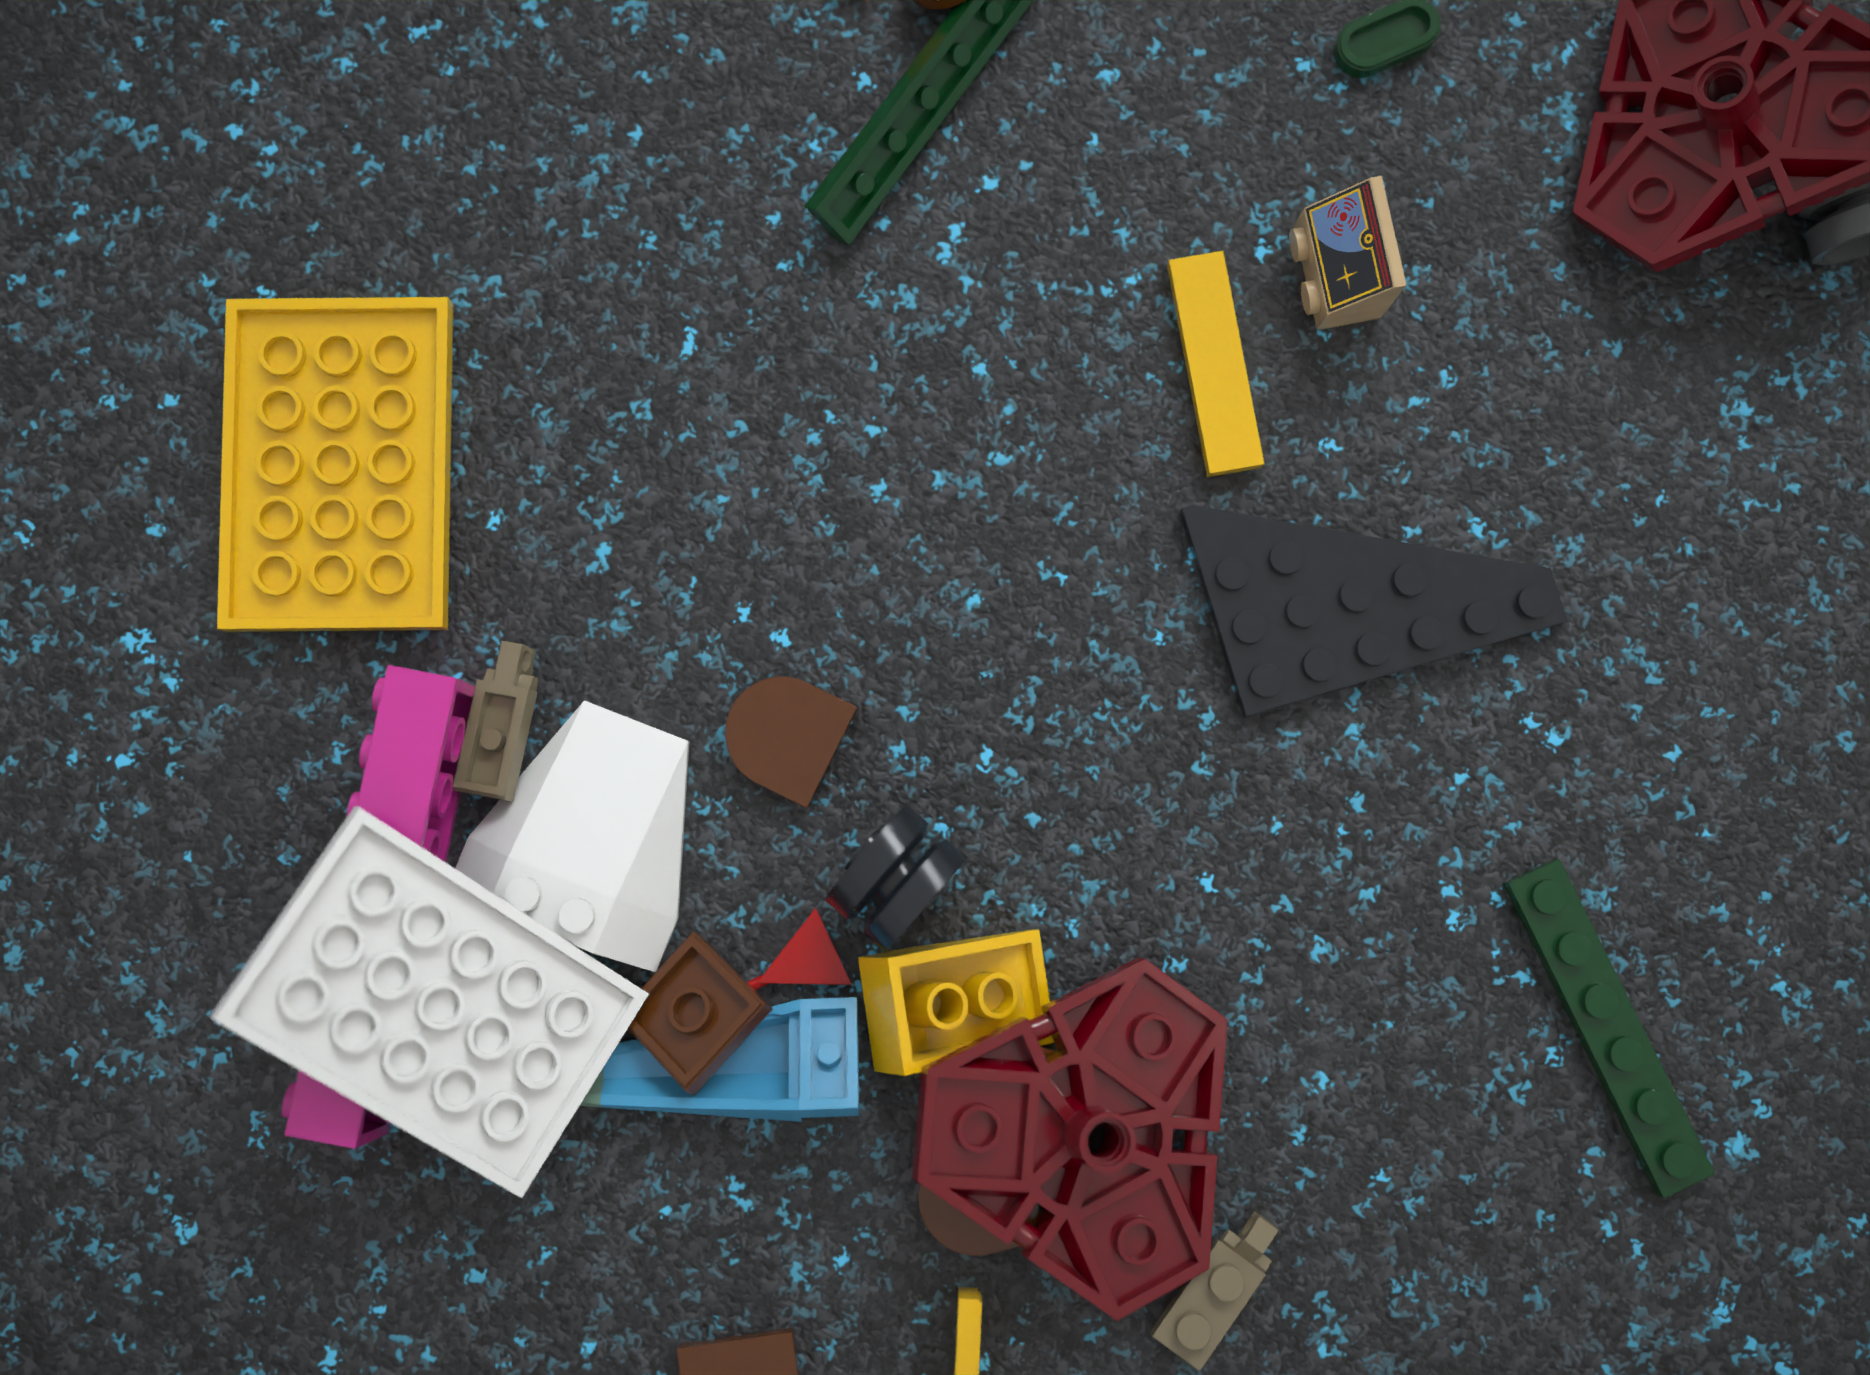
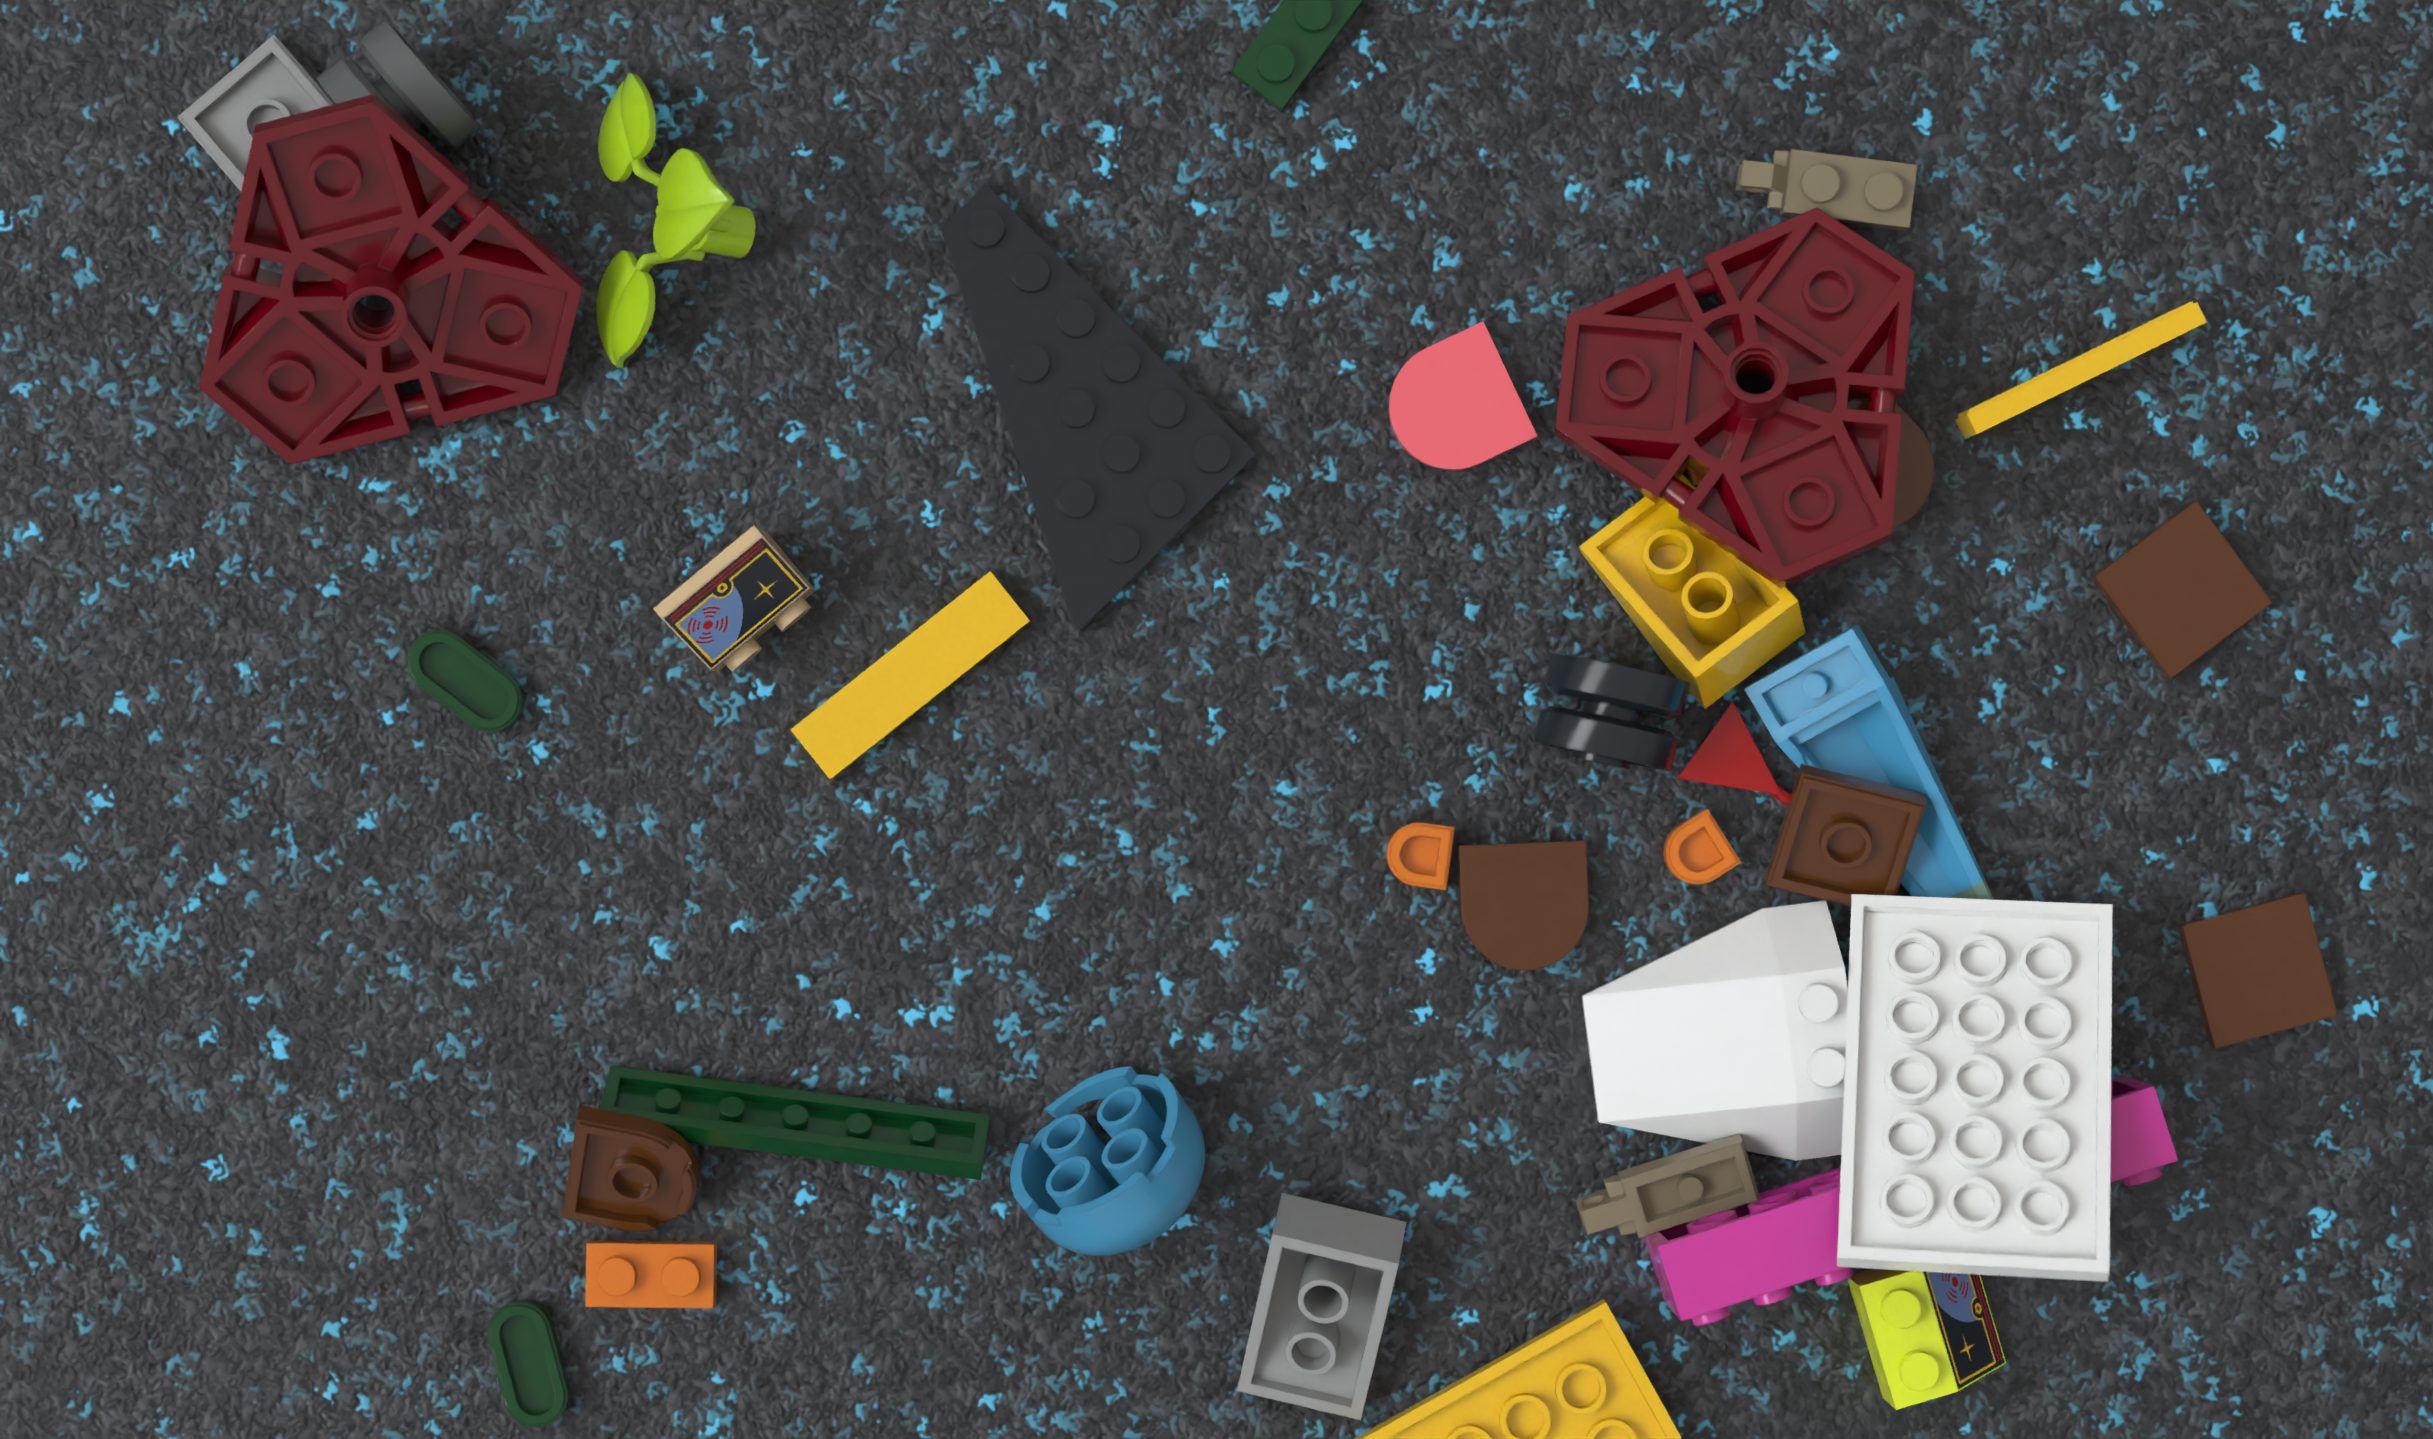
camera: 120 degrees left, 5 degrees up
(264, 859) = (1925, 1332): none -> neon yellow slope
(407, 1289) = (2257, 970): none -> reddish brown tile
(566, 411) = (1321, 1306): none -> light grey slope
(736, 302) = (1116, 1193): none -> dark azure cylinder
(749, 893) = (1698, 850): none -> orange tile
(865, 676) = (1421, 854): none -> orange tile
(1202, 895) = (1457, 403): none -> coral tile
(1649, 387) = (690, 220): none -> lime plant

